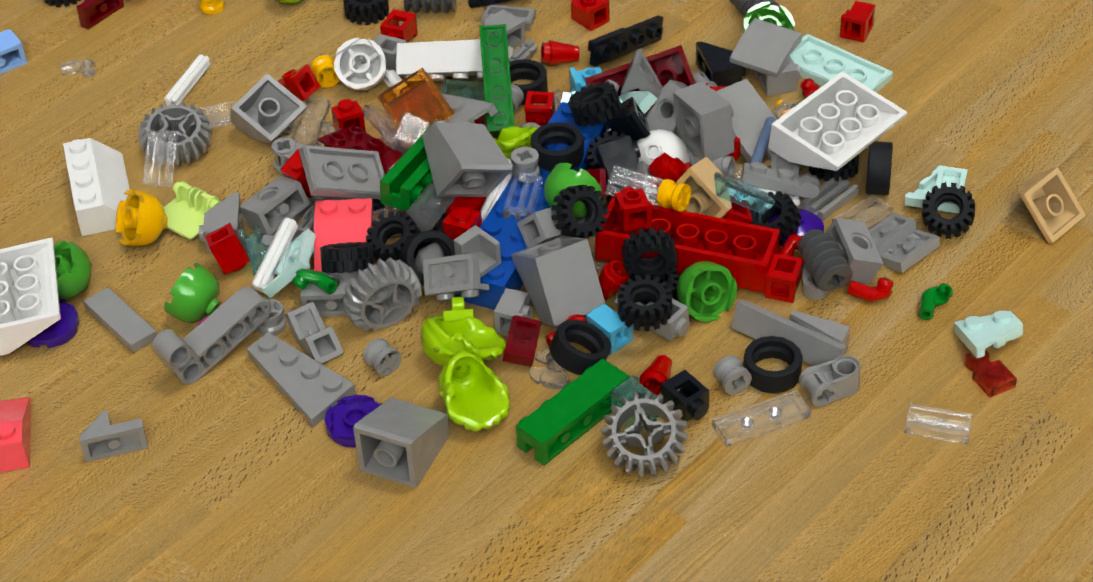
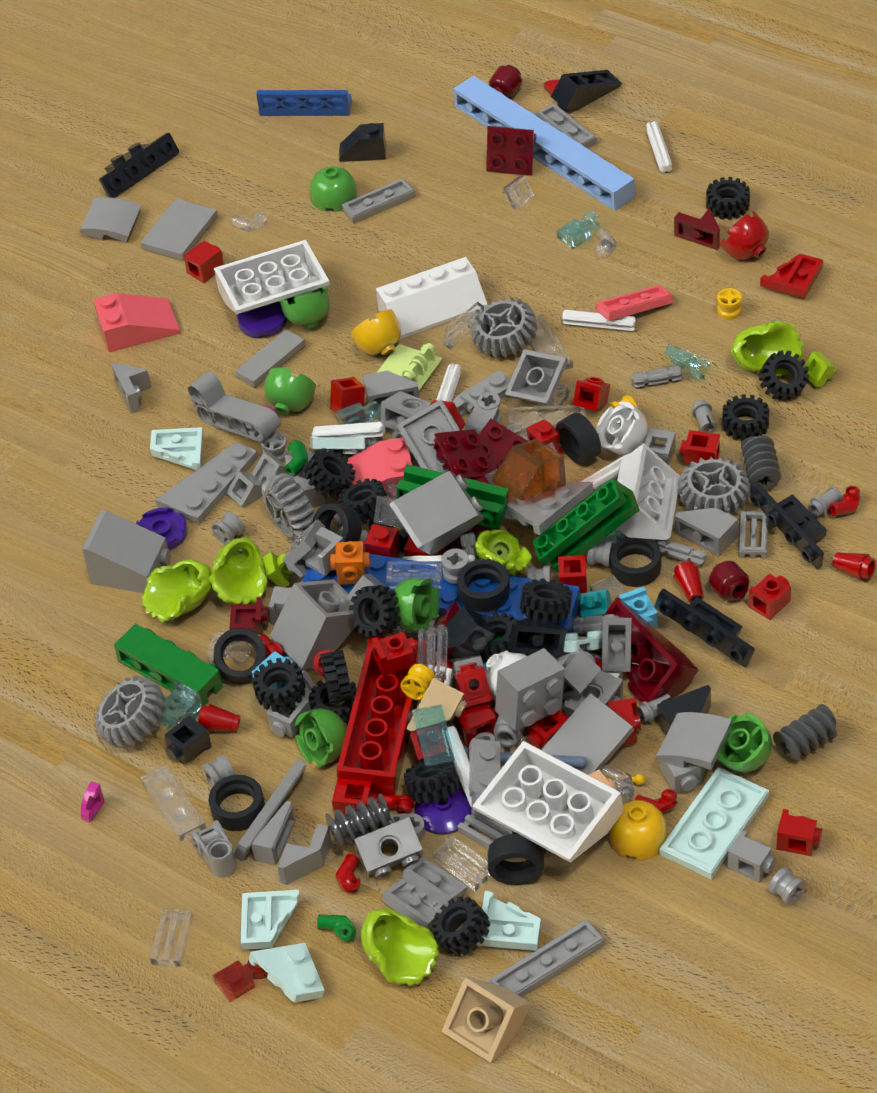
camera: 85 degrees right, 5 degrees up
(48, 86) = (577, 232): none -> clear light blue plate
(180, 52) = (634, 302): none -> coral tile
(231, 185) = (449, 383): none -> white axle
(233, 396) = (178, 446): none -> light aqua wing
(253, 162) = (494, 383): none -> light grey hinge
(270, 31) = (683, 357): none -> clear light blue plate
(284, 52) = (657, 376): none -> light grey axle
(352, 27) = (702, 412): none -> light grey pin
(355, 79) = (578, 438): none -> black tyre
(364, 156) = (462, 453): none -> dark red hinge
(410, 128) = (494, 472): clear tile -> none
(448, 23) = (714, 486): none -> light grey gear
(504, 224) = (350, 561): none -> orange brick
(568, 27) = (729, 581): none -> dark red head
(753, 481) = (92, 801): none -> dark pink tile
(848, 307) = (302, 860): none -> light grey slope
(880, 46) = (750, 858): none -> light grey brick
(912, 31) = (787, 886): none -> light grey wheel
(922, 349) = (265, 917): none -> light aqua wing
(968, 252) = (399, 946): none -> lime piece
(980, 174) = (550, 959): none -> light grey tile

